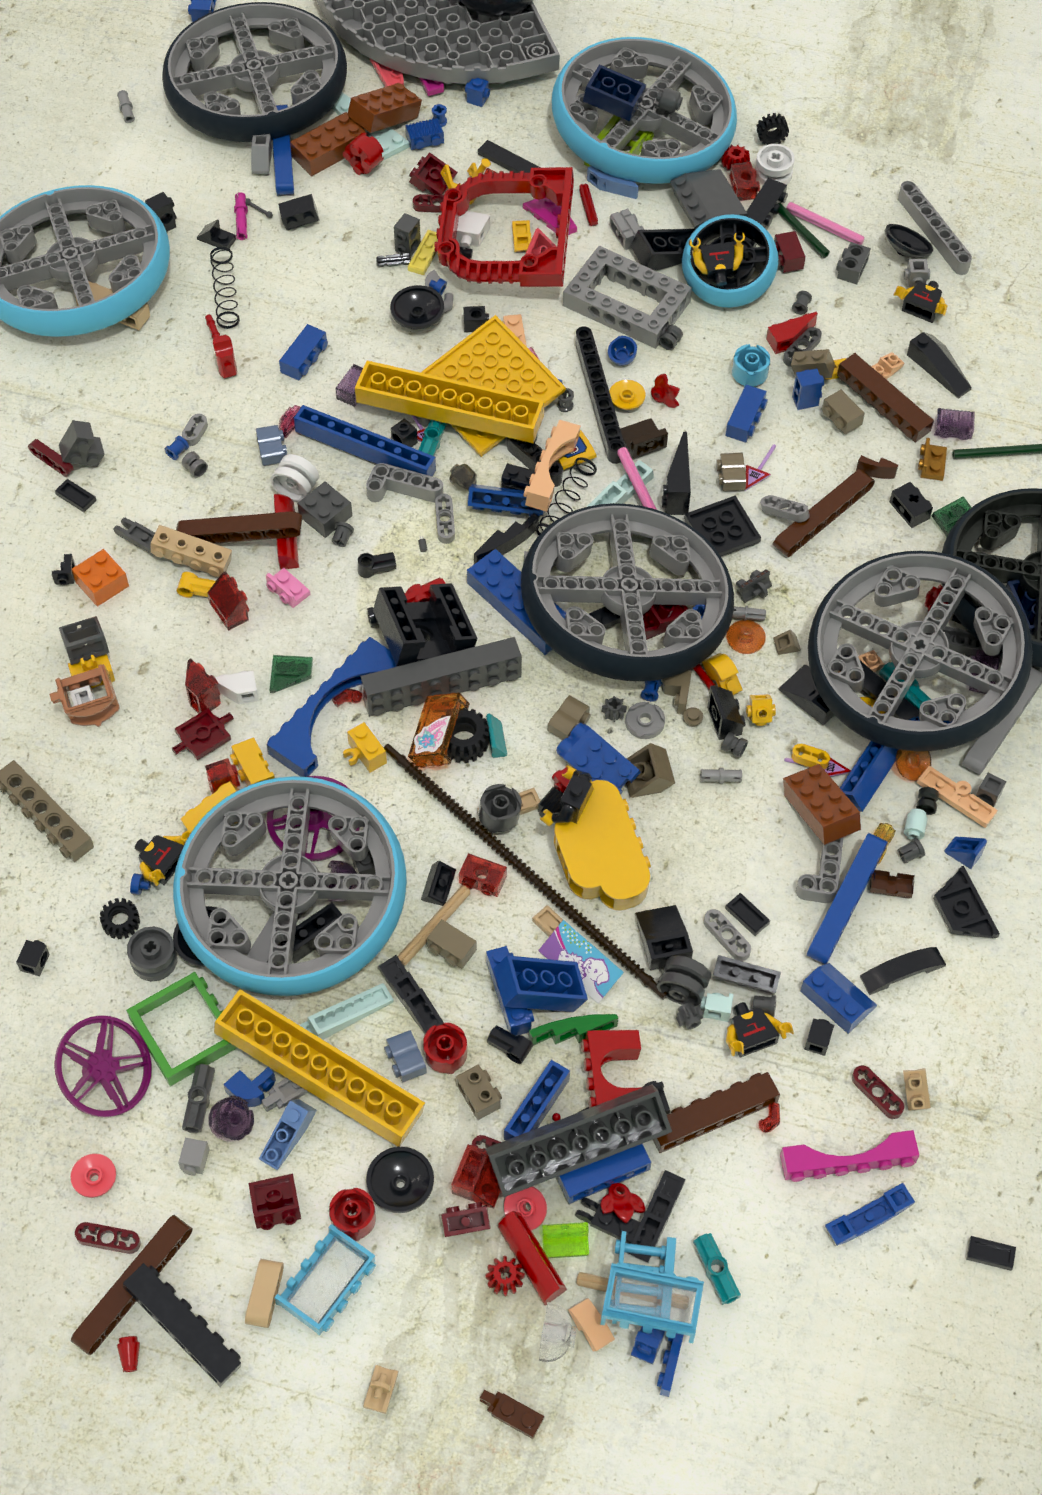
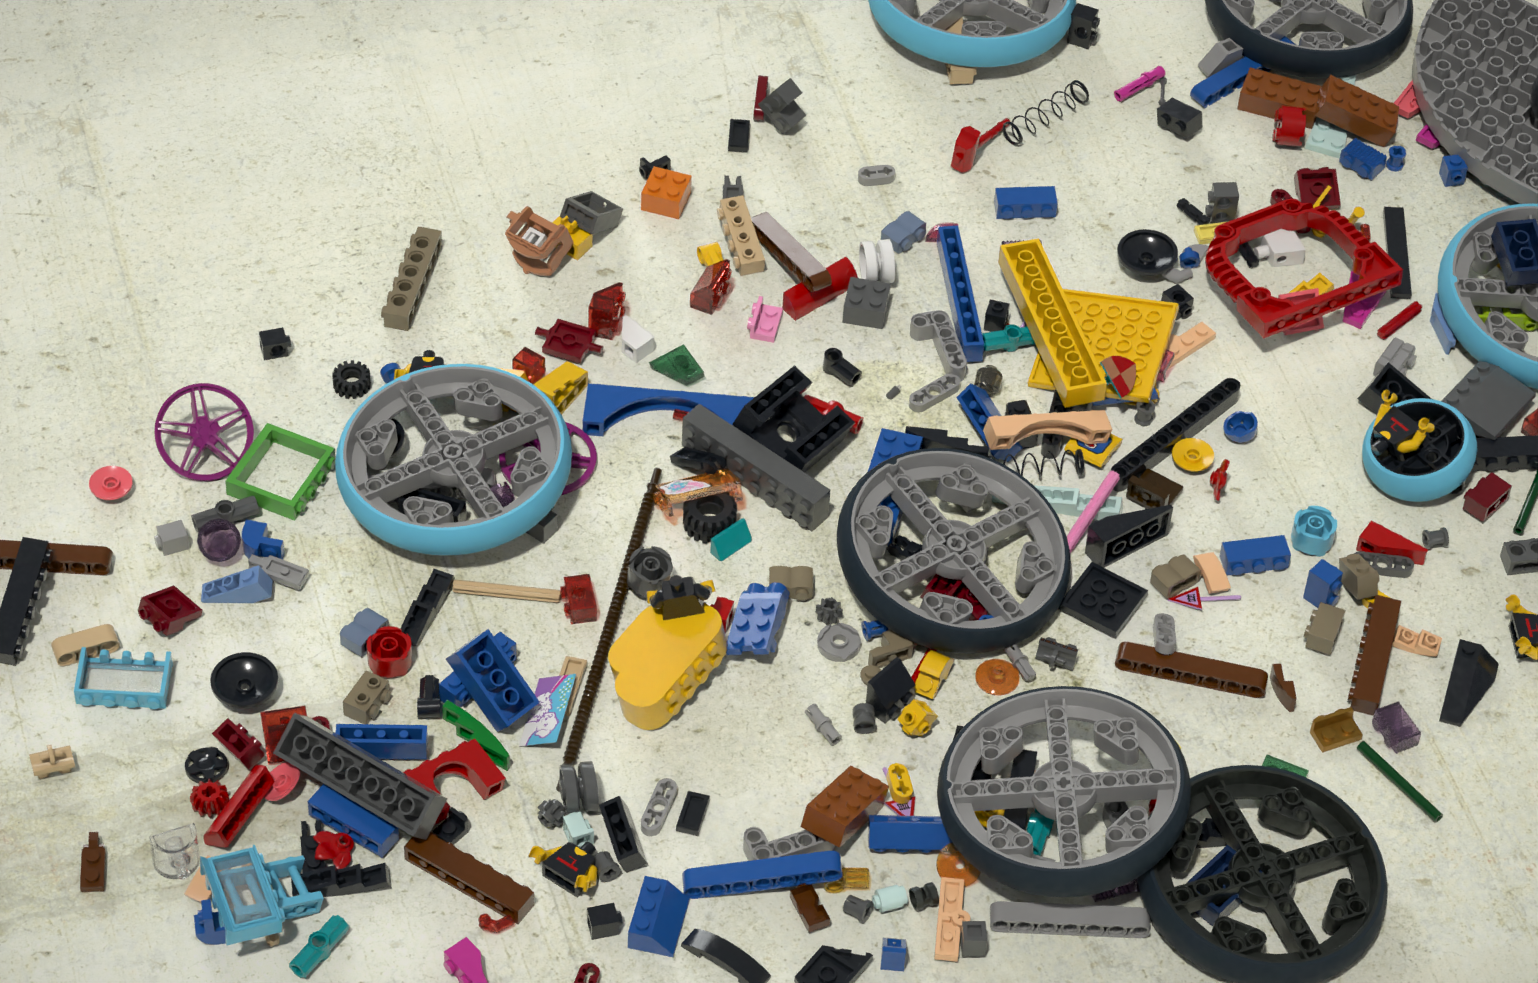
camera: 55 degrees right, 10 degrees down
(102, 1229) = (68, 514): dark red beam -> none
(152, 953) = (330, 412): dark grey wheel -> none
(176, 447) = (844, 172): blue bush -> none
(192, 462) = (837, 192): flat silver wheel -> none
(215, 236) = (1101, 80): black slope -> none
(319, 1067) = (304, 572): yellow brick -> none
(342, 531) = (852, 328): dark grey bush -> none
(348, 1012) = (359, 565): light aqua slope -> none
(348, 1202) = (191, 664): red brick -> none
(365, 747) = (642, 455): yellow brick -> none
(403, 711) = (698, 459): none -> black hinge
(438, 883) = (549, 575): black slope -> none
(451, 944) = (493, 608): dark tan brick -> none
(462, 1260) = (206, 763): none -> black wheel
(536, 389) = (1120, 373): none -> shield
(565, 1240) = (273, 827): clear neon green panel -> none
(655, 771) = (783, 667): dark tan slope -> none
(663, 935) = (617, 757): black slope -> none
(669, 293) = (1316, 438): light grey brick -> none
(670, 1359) = (211, 953): blue plate -> none
(671, 336) = (1293, 456): dark grey wheel -> none
(749, 447) = (1212, 572): none -> light nougat slope
(911, 504) = (1263, 734): black brick -> none

